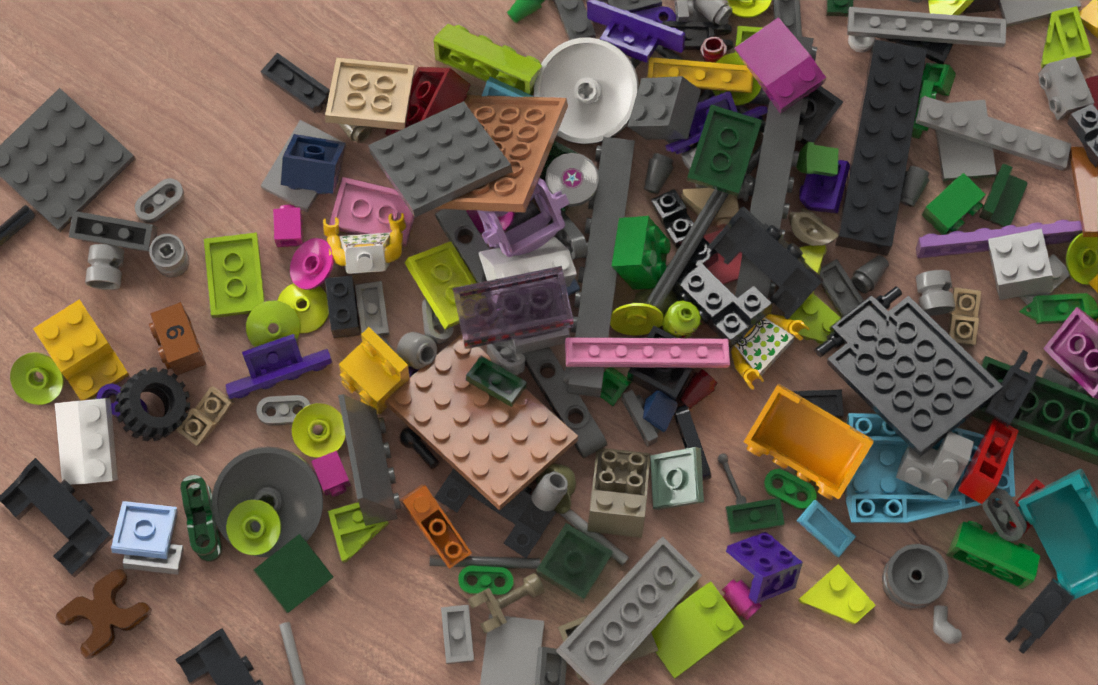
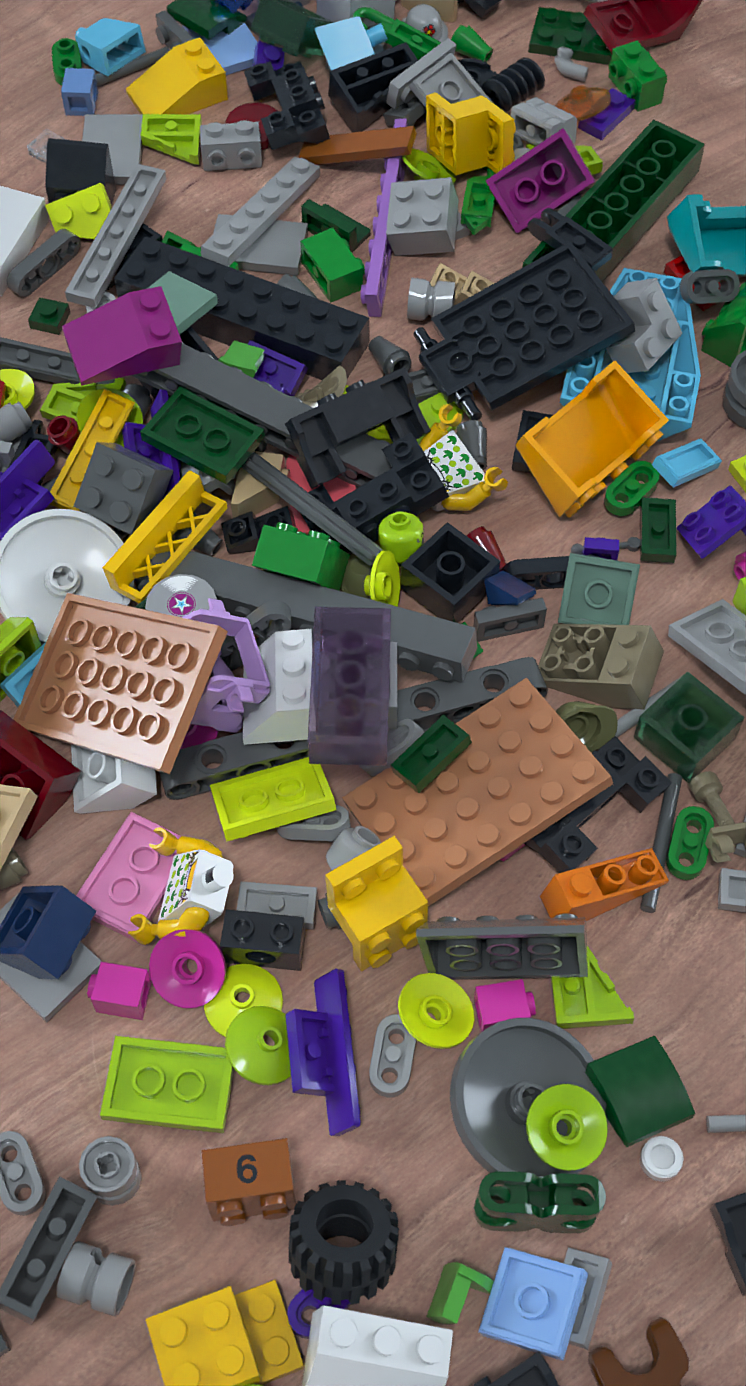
camera: 75 degrees left, 15 degrees down
(142, 479) = (452, 1291): none -> bright green tile
(205, 416) = (365, 1163): tan slope -> none
(255, 596) = (661, 1158): none -> white tile
(411, 440) = (470, 898): black bar -> none
(440, 159) = (106, 740): dark grey plate -> none
(549, 491) = (594, 724): light grey brick -> none
(632, 142) = (154, 533): none -> yellow fence
(647, 352) = (438, 574): bright pink tile -> none
(719, 474) = (601, 547): none -> dark purple plate
(798, 358) = (474, 438): none -> dark grey cone
(849, 91) = (185, 299): none -> sand green tile
(988, 462) = (673, 275): red slope -> none

